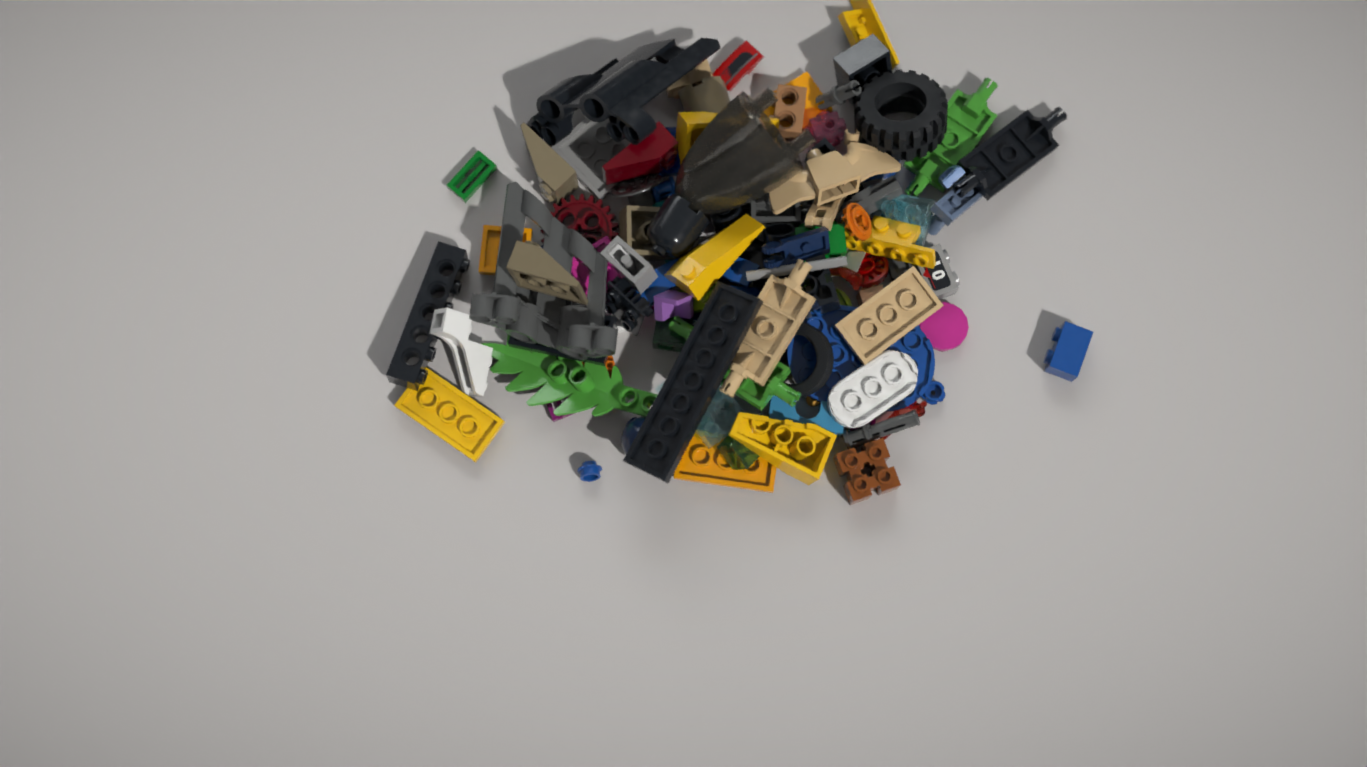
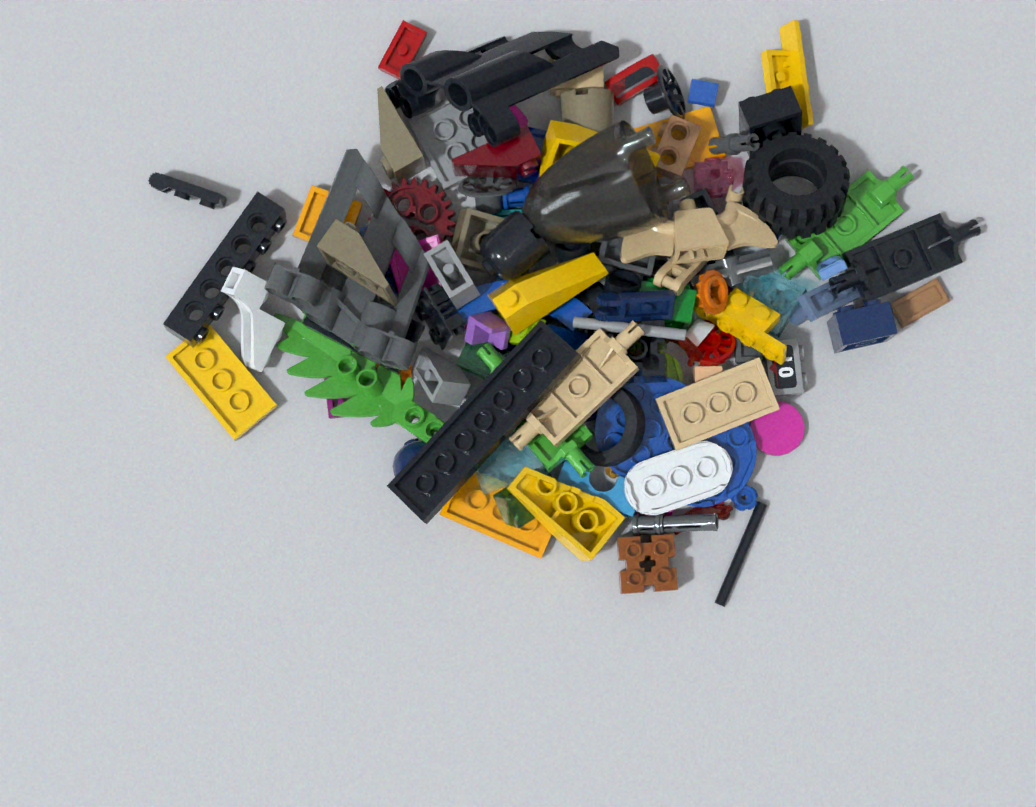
camera: 20 degrees right, 5 degrees up
(373, 257) = (186, 190): none -> black hinge
(478, 183) = (318, 136): green tile -> none
(531, 88) = (402, 49): none -> red plate
(589, 471) = (353, 483): blue plate -> none
(642, 359) = (440, 378): none -> light grey slope
(763, 72) = (661, 96): none -> black wheel
(798, 61) = (702, 93): none -> blue slope
(944, 441) = (740, 554): none -> black bar
(991, 219) = (861, 326): none -> dark blue brick
(1032, 189) = (919, 302): none -> medium nougat tile
(1067, 351) = (903, 492): blue brick -> none

